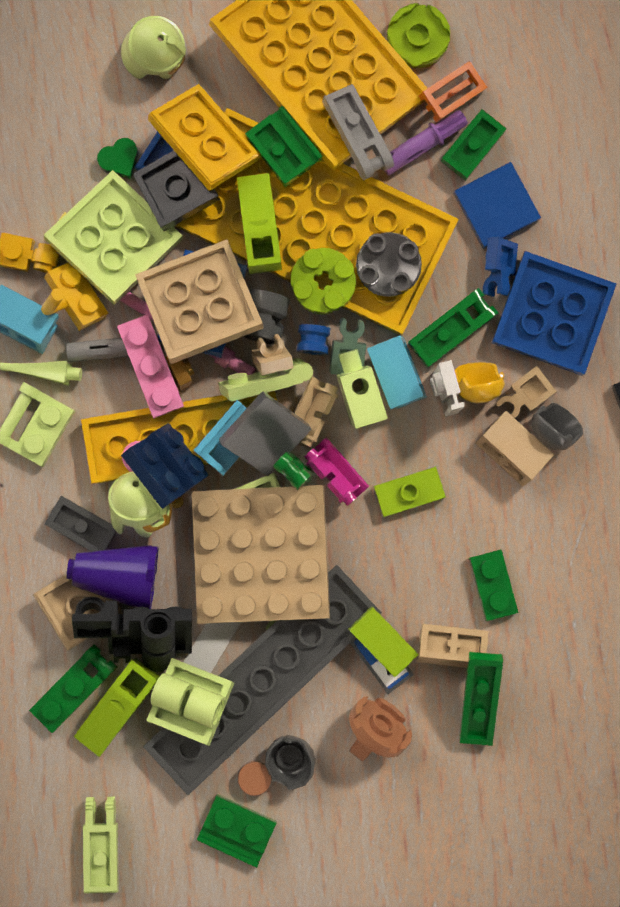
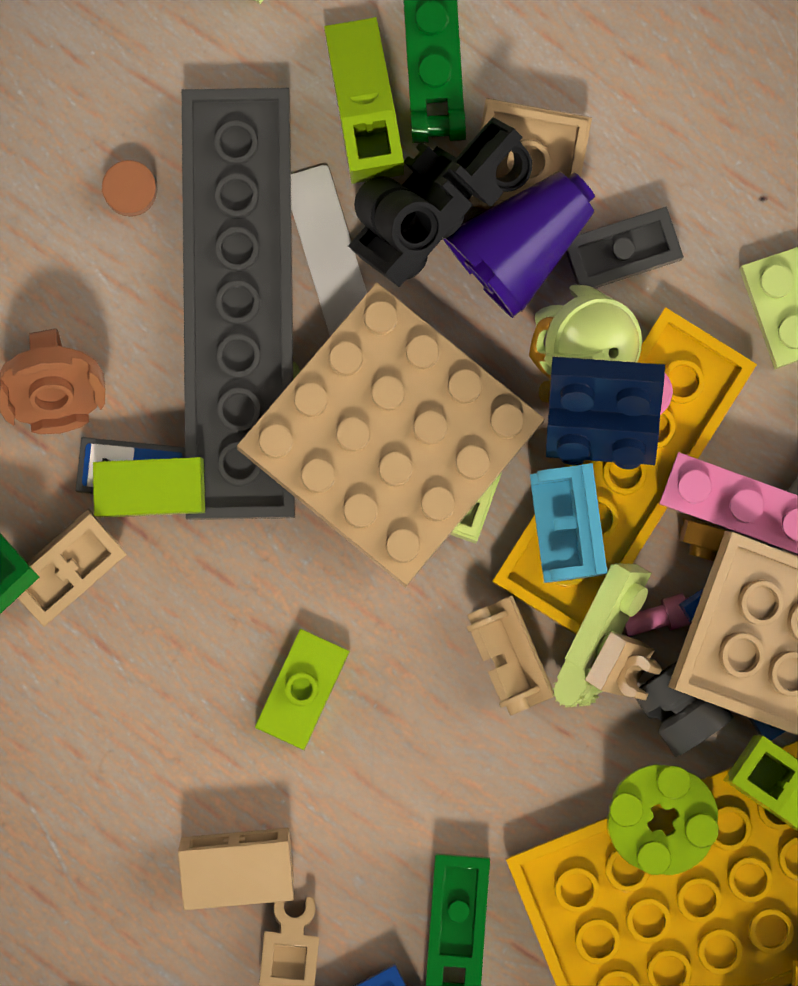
camera: 135 degrees right, 0 degrees up
(189, 701) = (291, 188): yellowish green plate -> none
(236, 830) = (87, 112): green plate -> none
(264, 433) = (533, 570): dark grey tile -> none
(290, 761) = (108, 246): dark grey hair -> none
(294, 470) = (455, 566): green plate -> none
(313, 339) = (599, 741): blue wheel -> none
(343, 478) = (430, 620): dark pink hinge -> none
(348, 343) = (542, 770): sand green plate -> none
(364, 405) = (462, 728): yellowish green torso -> none
(388, 264) = (609, 921): flat silver dish -> none
(397, 372) = (464, 808): medium azure hinge -> none
(446, 386) = (392, 852): white plate -> none
(479, 382) = (360, 900): yellow hair -> none
(493, 585) = (94, 688): green plate -> none
(556, 427) = (215, 945): dark grey hair -> none

